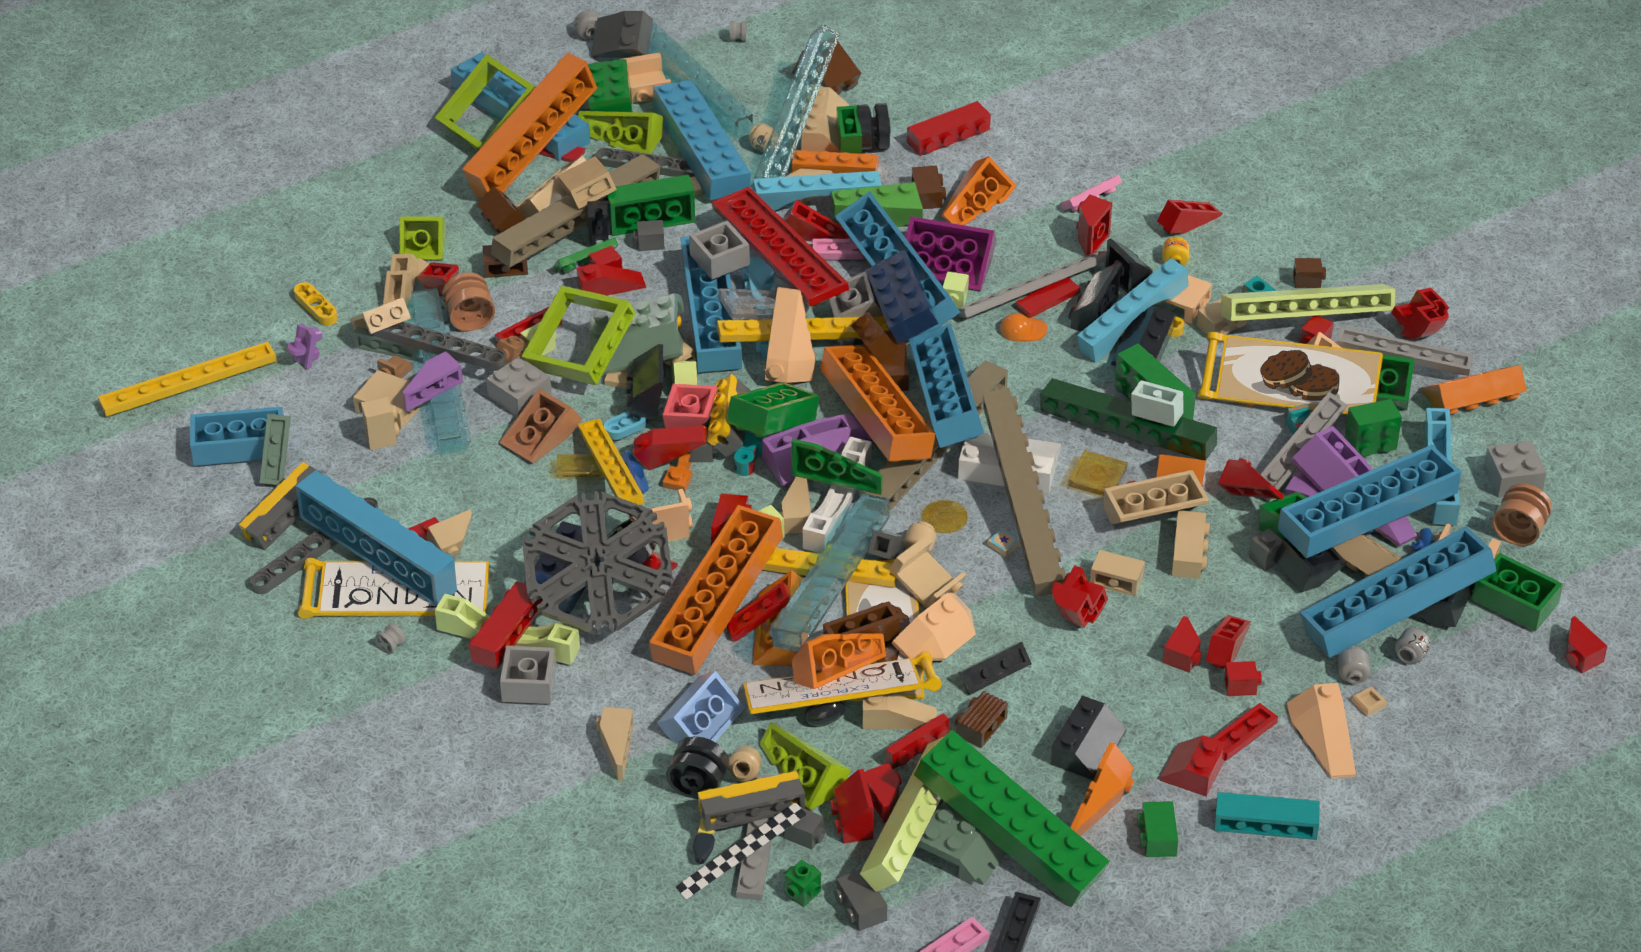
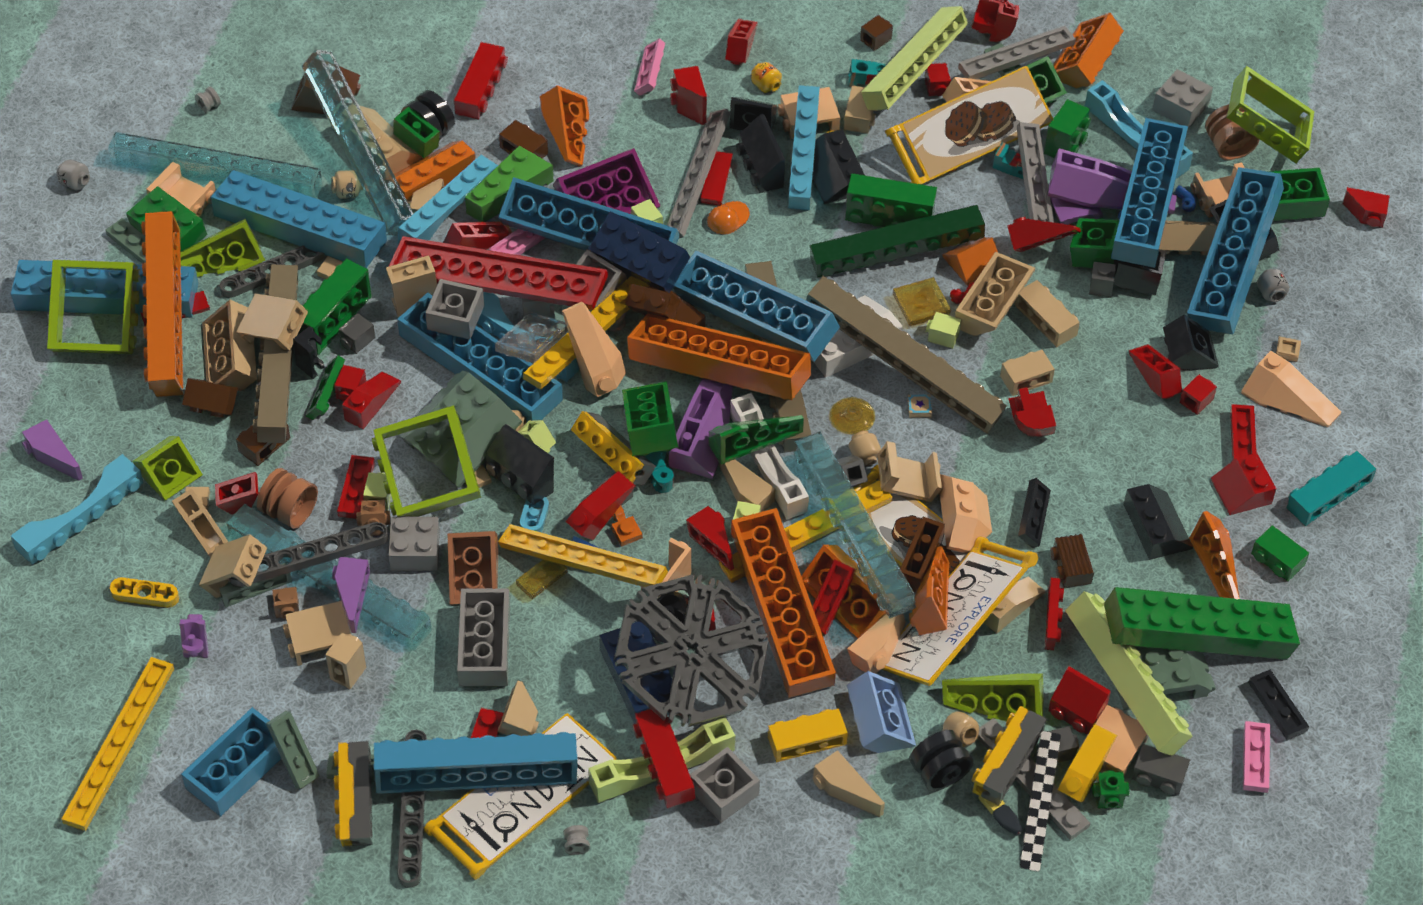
camera: 45 degrees left, 10 degrees up
(293, 228) = (41, 537): none -> medium azure arch
(365, 175) = (50, 450): none -> medium lavender slope
(488, 472) = (484, 637): none -> light grey brick
(622, 35) = (123, 166): dark grey slope -> none
(630, 689) = (807, 734): none -> yellow brick
(688, 405) = (578, 464): coral slope -> none
(712, 210) = (411, 282): none -> tan panel
(758, 667) = (877, 644): none -> light nougat slope
(802, 844) = (1087, 763): none -> yellow slope
(842, 851) = (1128, 741): none -> light nougat panel
(884, 789) = (1077, 661): red slope -> none
(1089, 503) = (943, 329): none -> yellowish green brick
(1157, 403) = (925, 214): light aqua brick -> none
(1183, 647) = (1134, 397): red slope -> none
(1282, 641) = (1189, 345): none -> black slope
(1354, 664) = (1254, 328): light grey head -> none
(1586, 502) = (1278, 101): none -> lime window

